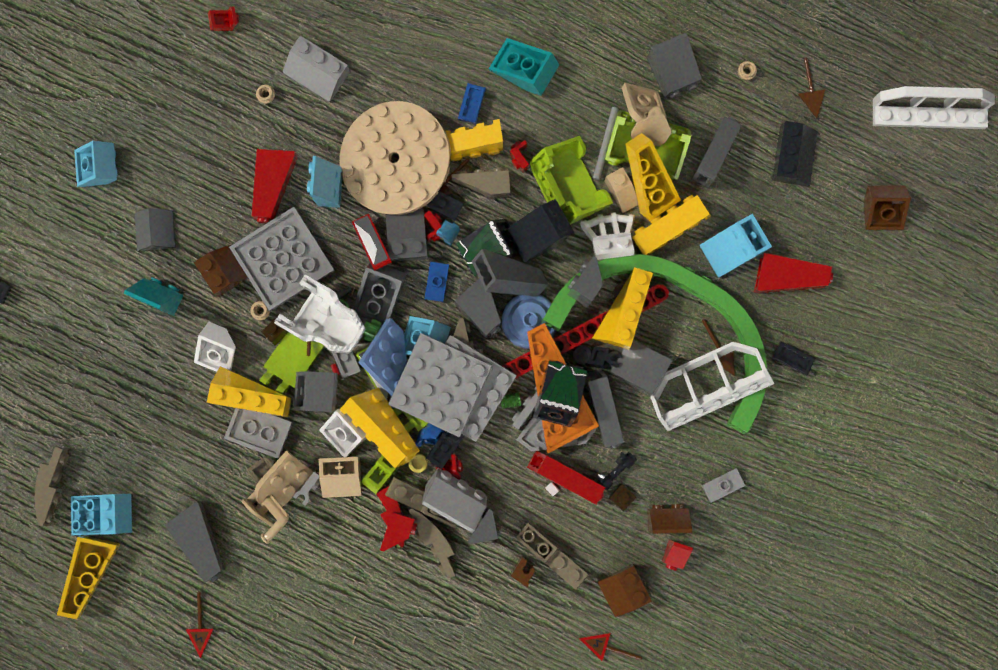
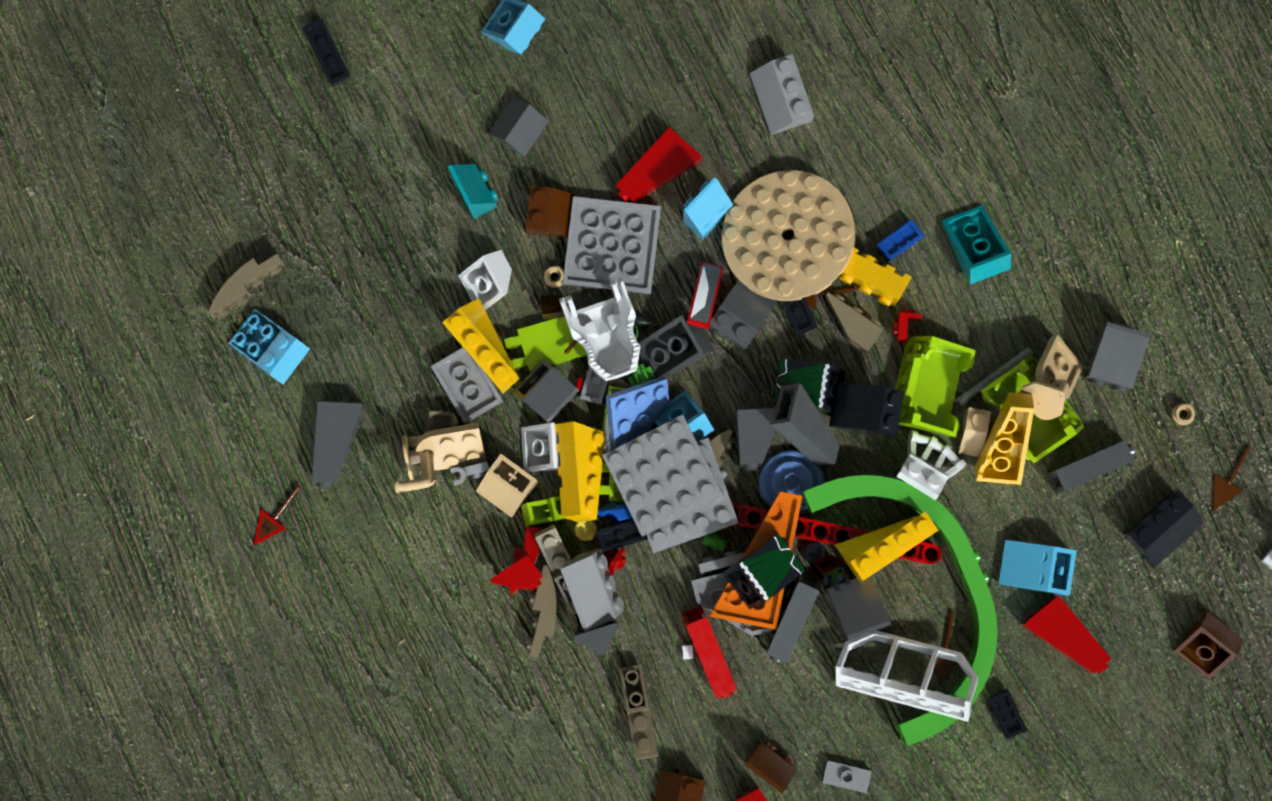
camera: 45 degrees right, 0 degrees up
(85, 572) = (218, 385): yellow wedge -> none
(261, 90) = (717, 75): tan plate -> none
(434, 221) = (777, 323): red bracket -> none
(436, 282) = (735, 379): blue plate -> none
(448, 232) = (782, 342): dark azure slope -> none
(520, 574) = (598, 706): reddish brown hinge -> none
(587, 285) = (869, 493): dark grey slope -> none
(622, 497) = (745, 712): dark brown plate -> none
(623, 461) = (773, 681): black piece -> none
(671, 225) = (993, 500): yellow wedge -> none

